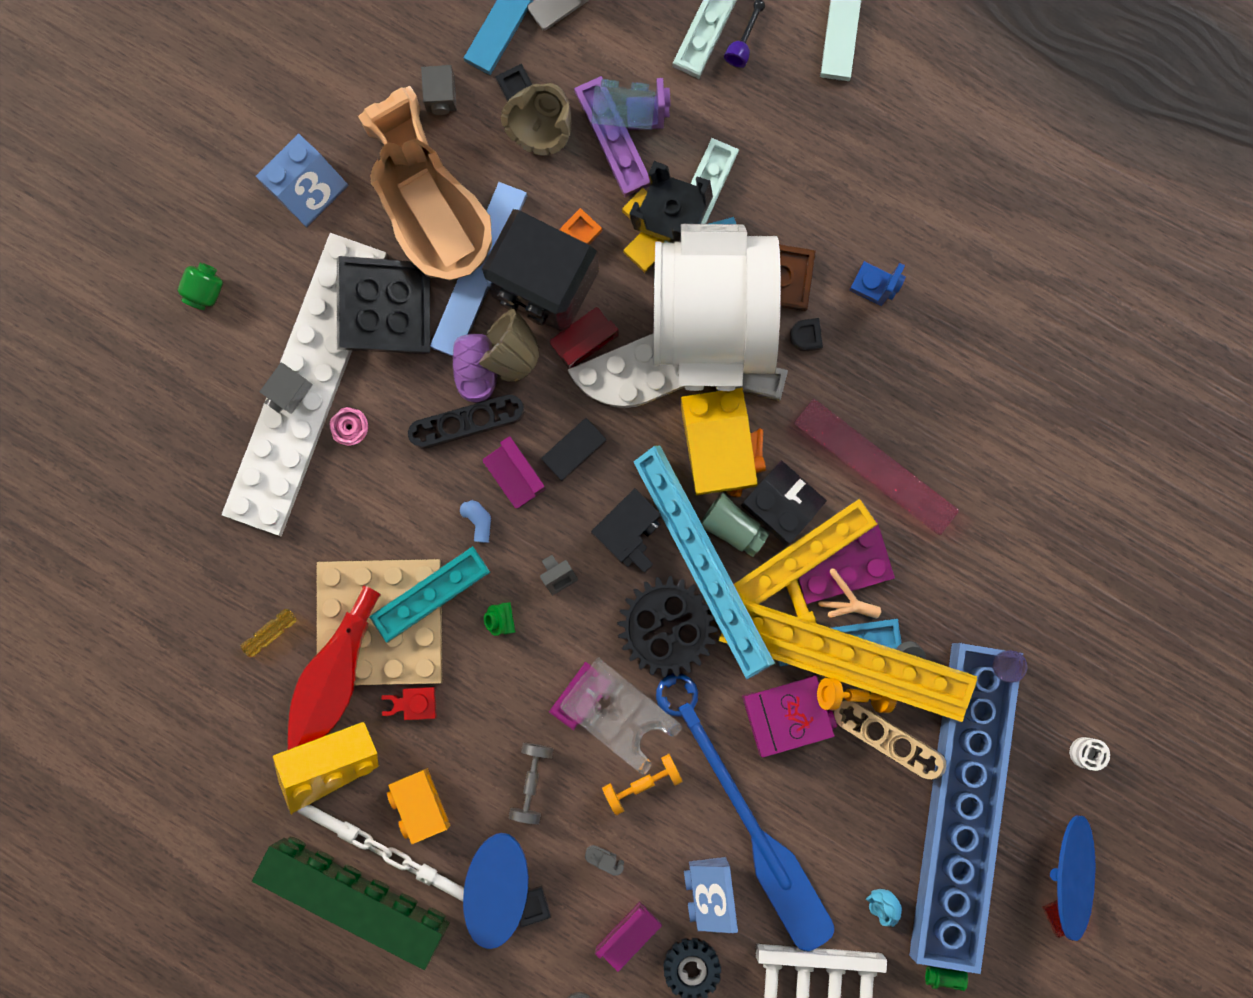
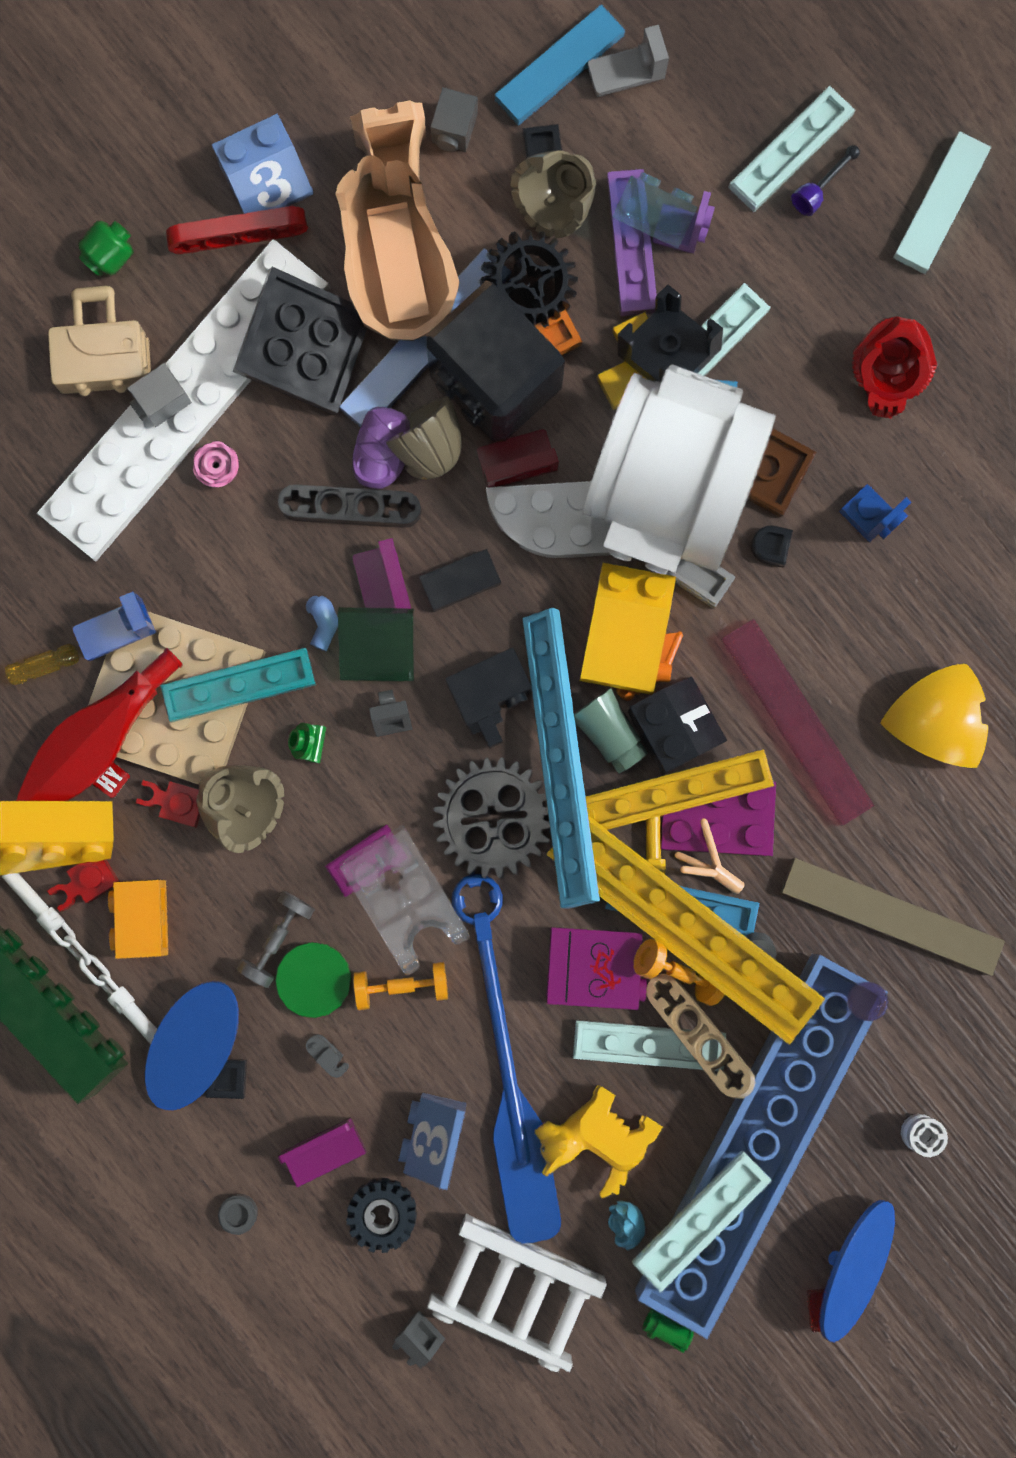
camera: 15 degrees right, 0 degrees up
(225, 372) = (97, 354): none -> tan piece
(298, 235) = (236, 230): none -> red beam
(316, 584) = (114, 628): none -> bracket
(357, 704) = (112, 780): none -> red sticker
(366, 791) = (88, 880): none -> red plate
(465, 688) = (240, 805): none -> dark tan hair
(526, 523) = (376, 644): none -> clear green tile
(535, 184) = (524, 265): none -> black gear
(572, 804) = (313, 980): none -> green tile
(839, 843) = (601, 1133): none -> yellow animal
(843, 763) = (637, 1045): none -> light aqua tile
(851, 161) = (894, 364): none -> red helmet
(943, 884) = (701, 1221): none -> light aqua tile
(987, 423) = (942, 717): none -> yellow brick
(1004, 592) = (892, 917): none -> dark tan tile

